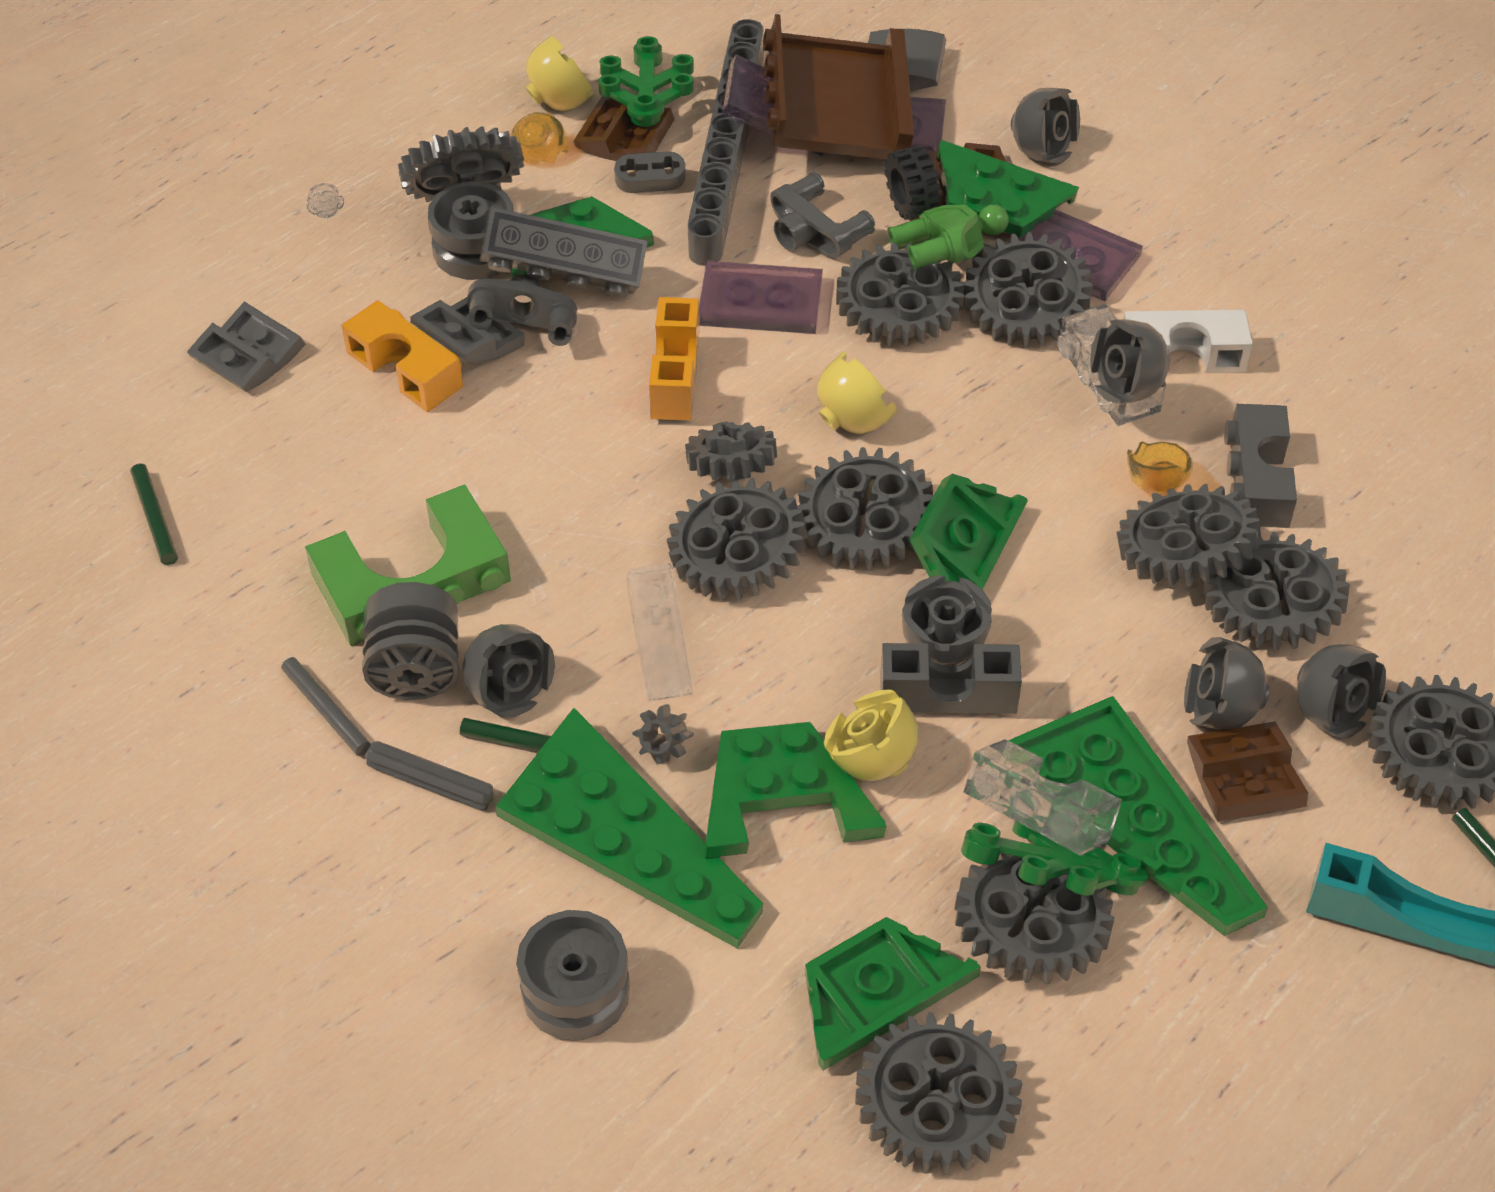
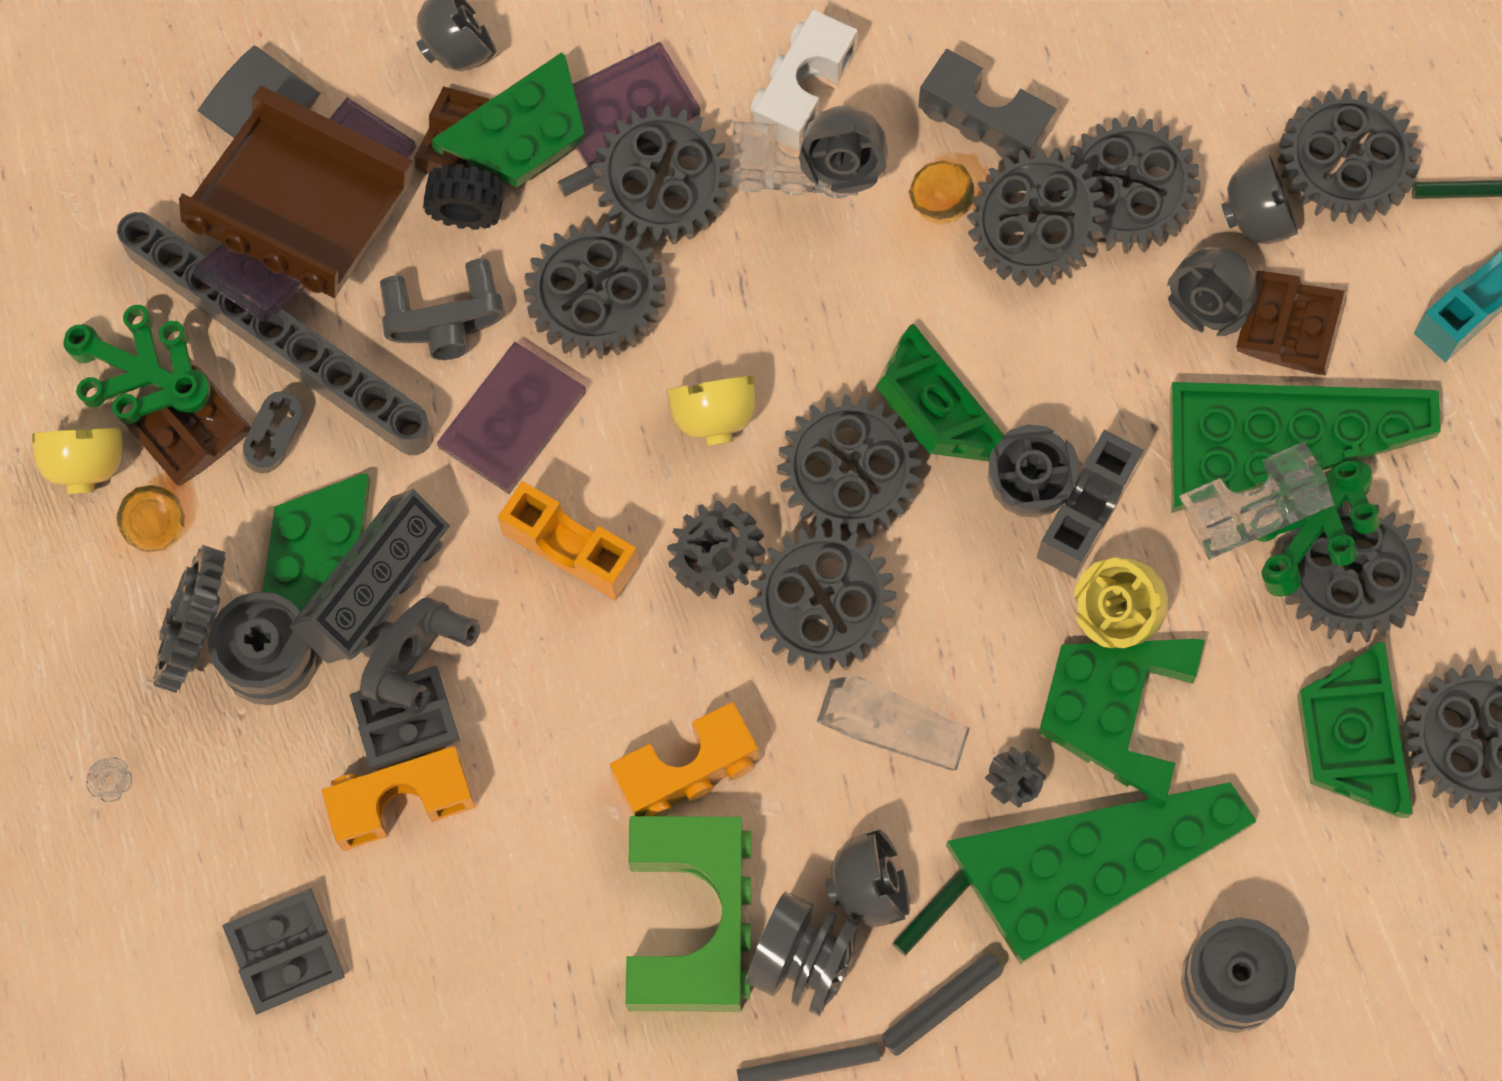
camera: 60 degrees left, 20 degrees up
(561, 529) = (654, 786): none -> light orange arch
(947, 233) = (555, 196): bright green connector -> none

